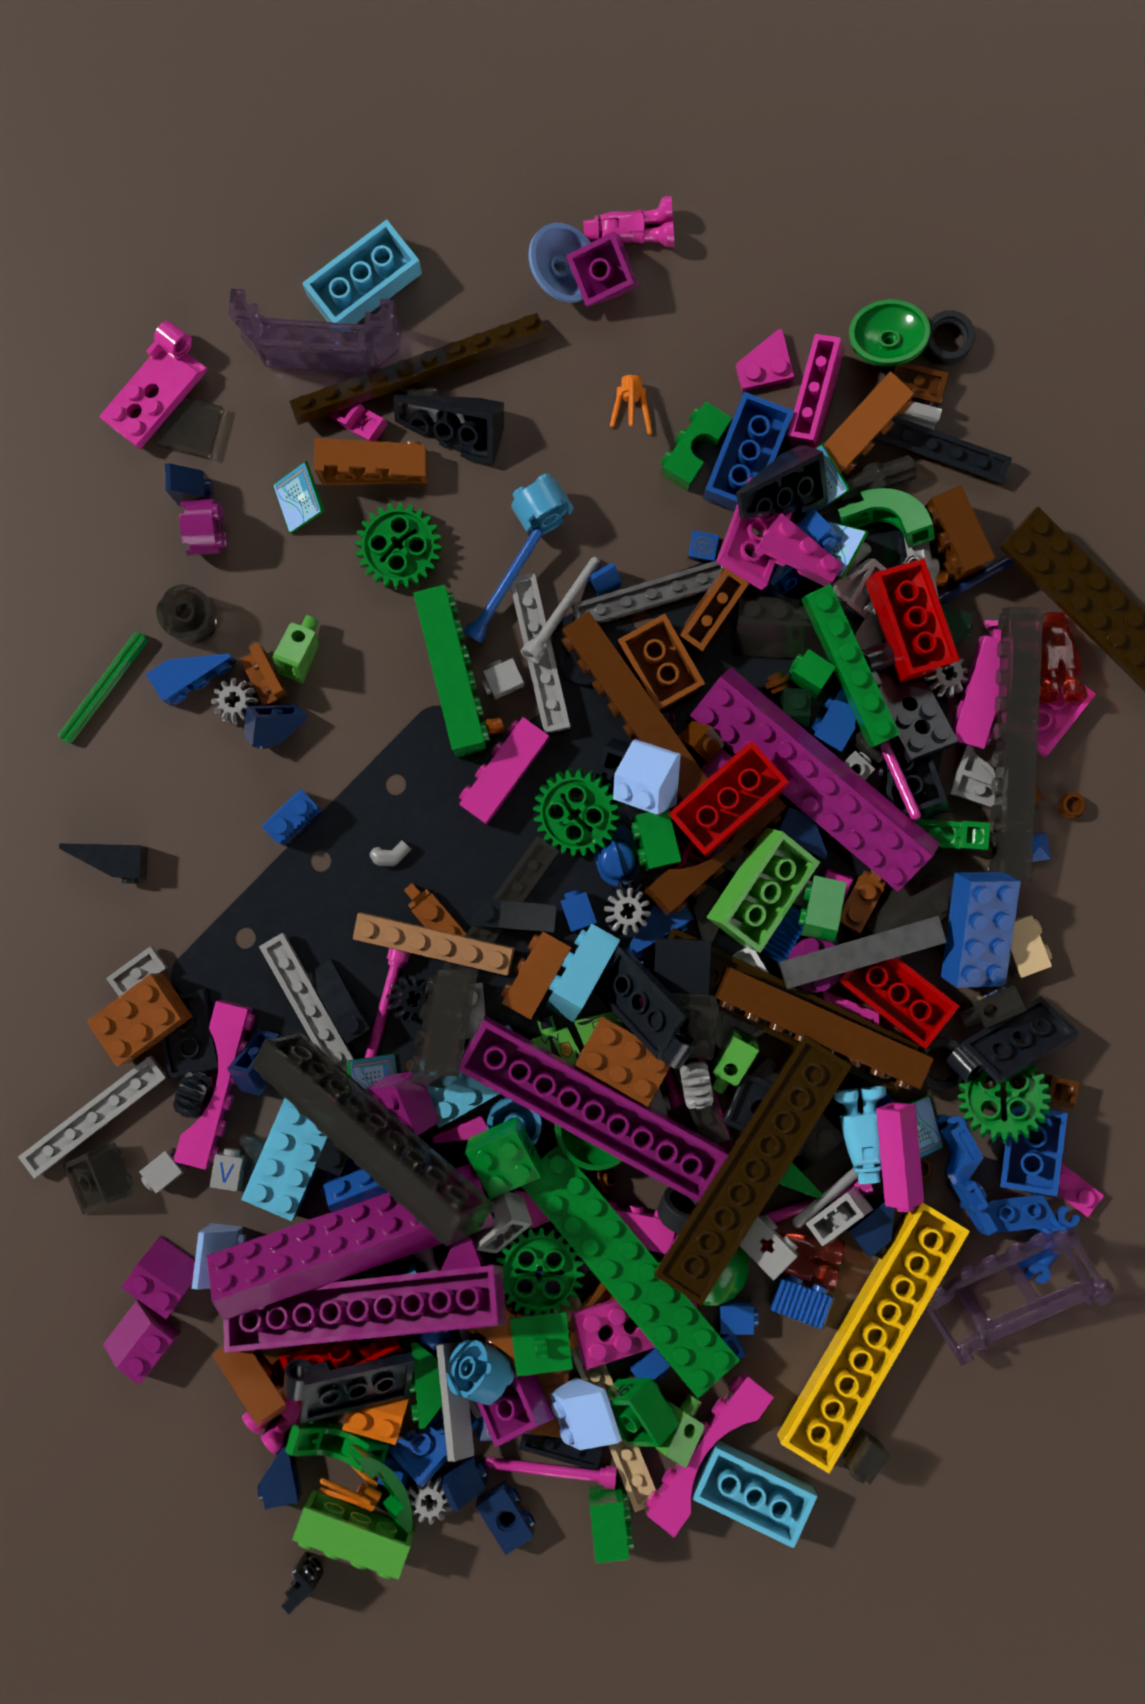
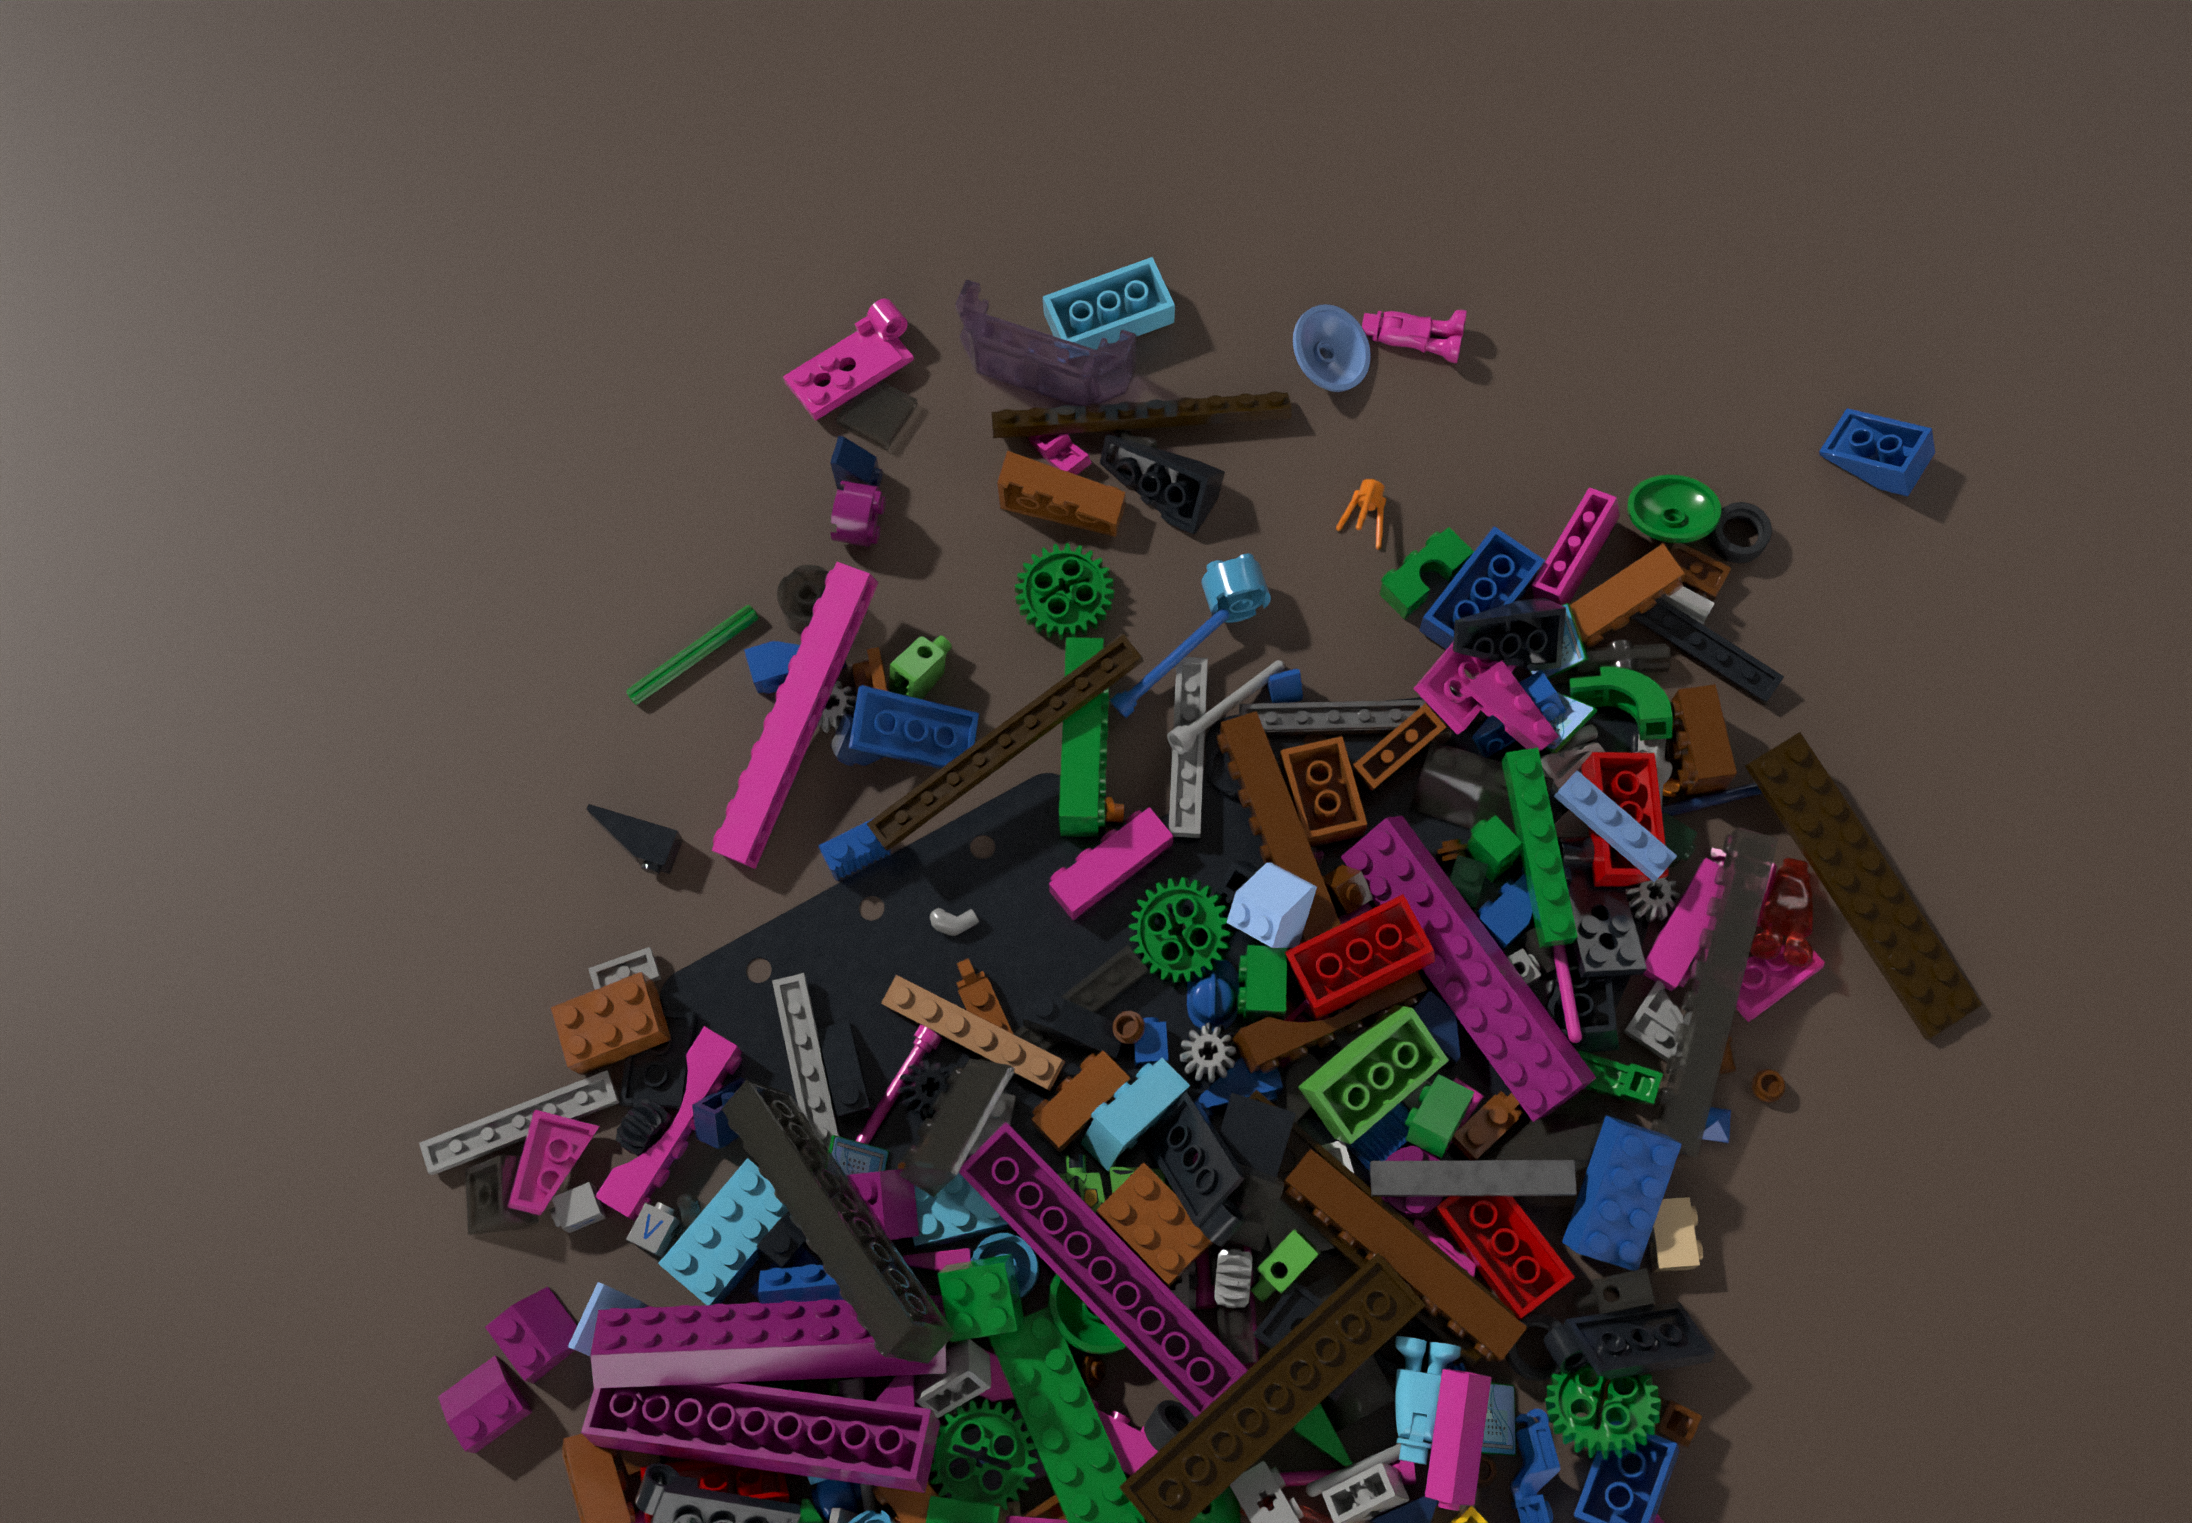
camera: 20 degrees right, 15 degrees down
(125, 1143) = (547, 1158): none -> dark pink wing
(206, 719) = (794, 715): none -> dark pink brick
(298, 497) = (970, 512): piece -> none
(309, 705) = (910, 728): none -> blue tile
(390, 698) = (1005, 742): none -> dark brown plate
(502, 678) = (1138, 762): light grey brick -> none
(558, 906) = (1128, 1027): none -> reddish brown plate
(603, 270) = (1372, 365): magenta slope -> none
(703, 546) = (1404, 680): blue tile -> none
(765, 364) = (1527, 509): dark pink wing -> none
(908, 632) = (1615, 826): none -> medium blue plate
(1047, 230) = (1880, 450): none -> blue slope

